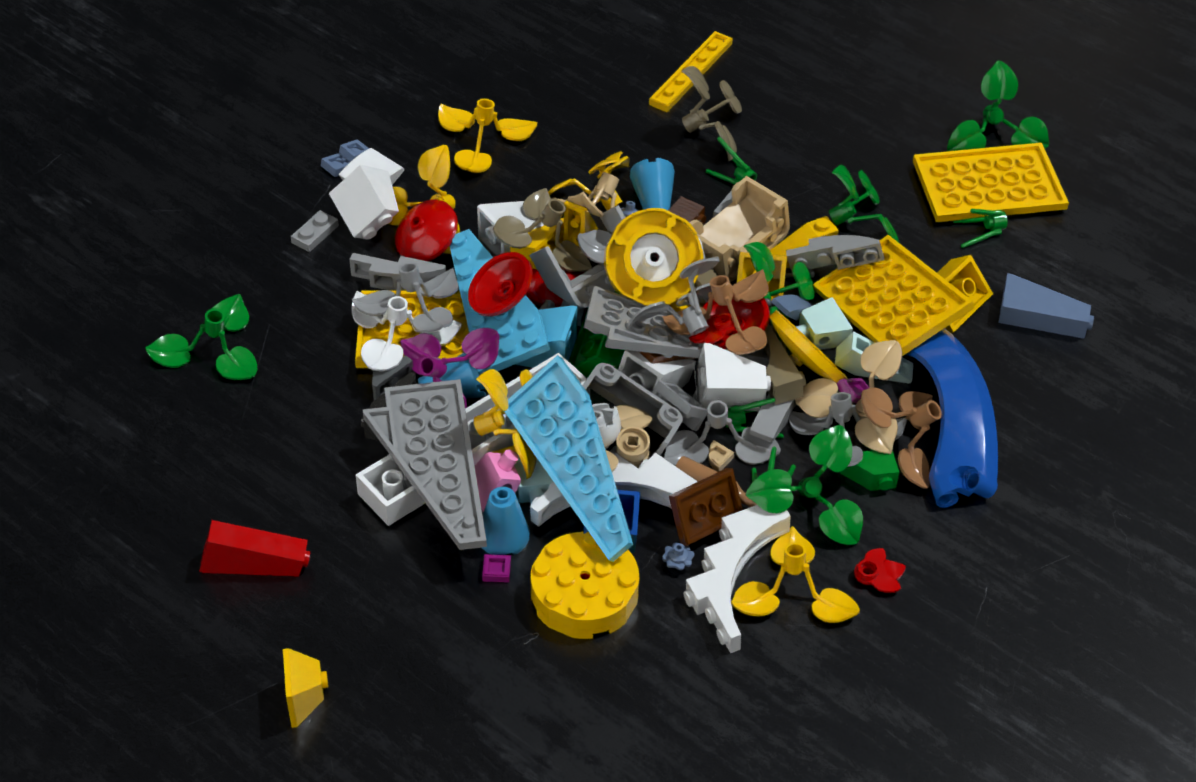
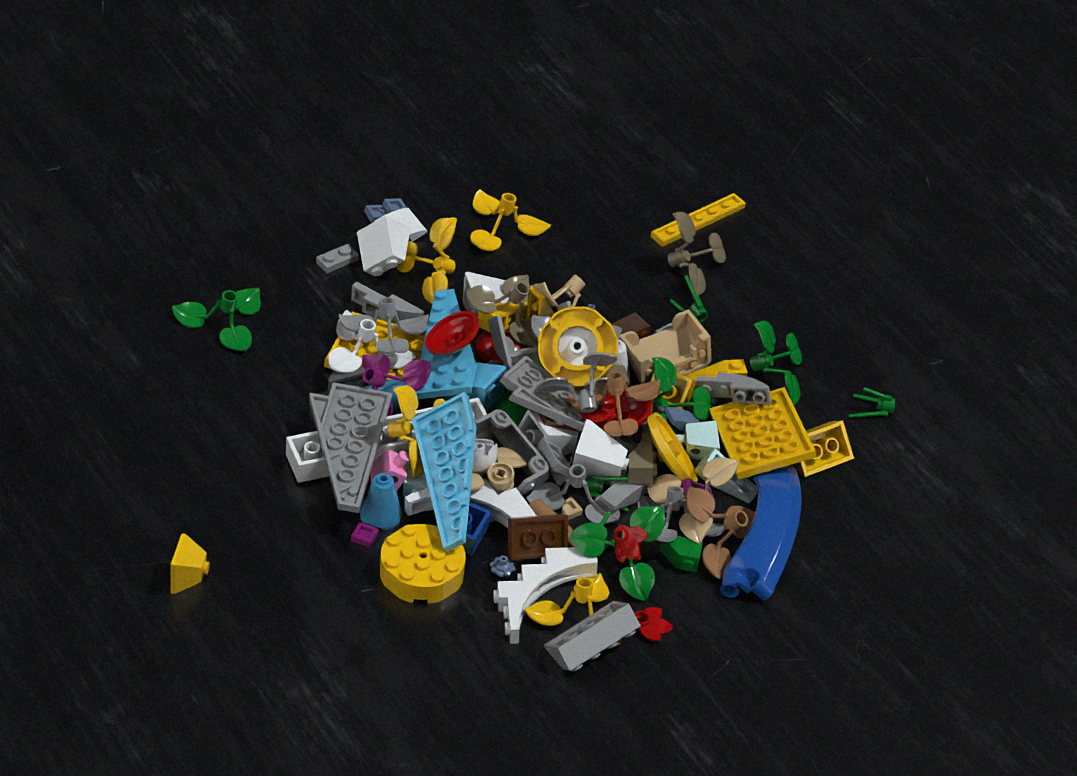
camera: 15 degrees right, 5 degrees down
(252, 552) = (190, 468): red slope -> none
(426, 230) = (421, 281): red dish -> none
(617, 163) = (582, 300): yellow plant -> none
(653, 183) = (618, 297): dark azure cone -> none
(819, 481) = (628, 545): none -> red plate
(827, 612) = (593, 635): none -> light grey slope
(991, 178) = (904, 372): yellow plate -> none
(998, 84) = (937, 297): green plant -> none
(1043, 309) = (885, 479): sand blue slope -> none

